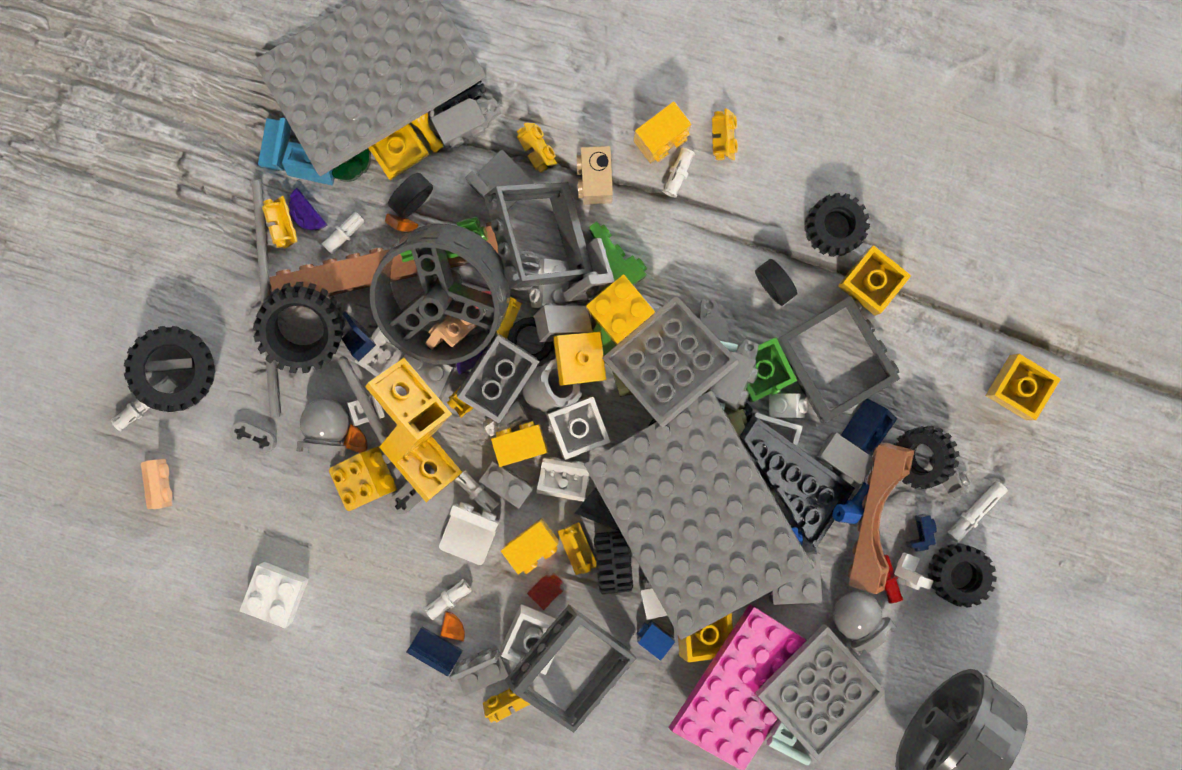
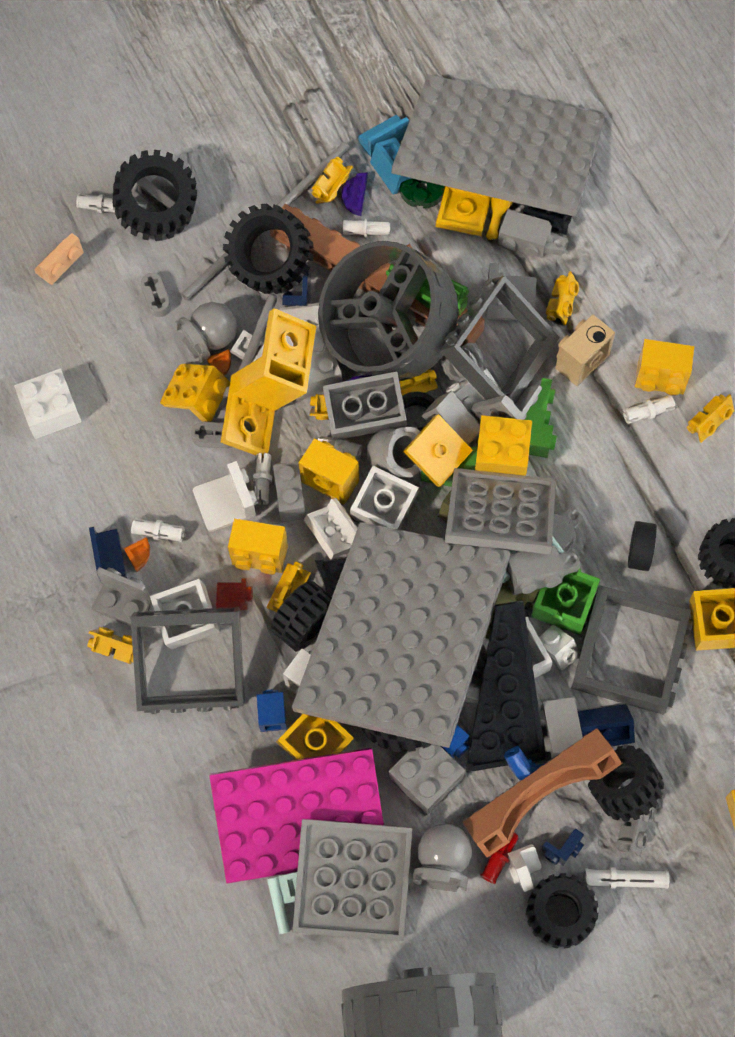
camera: 50 degrees right, 20 degrees down
(410, 195) = (439, 234): black tyre -> none
(450, 330) = (367, 346): light nougat bracket -> none

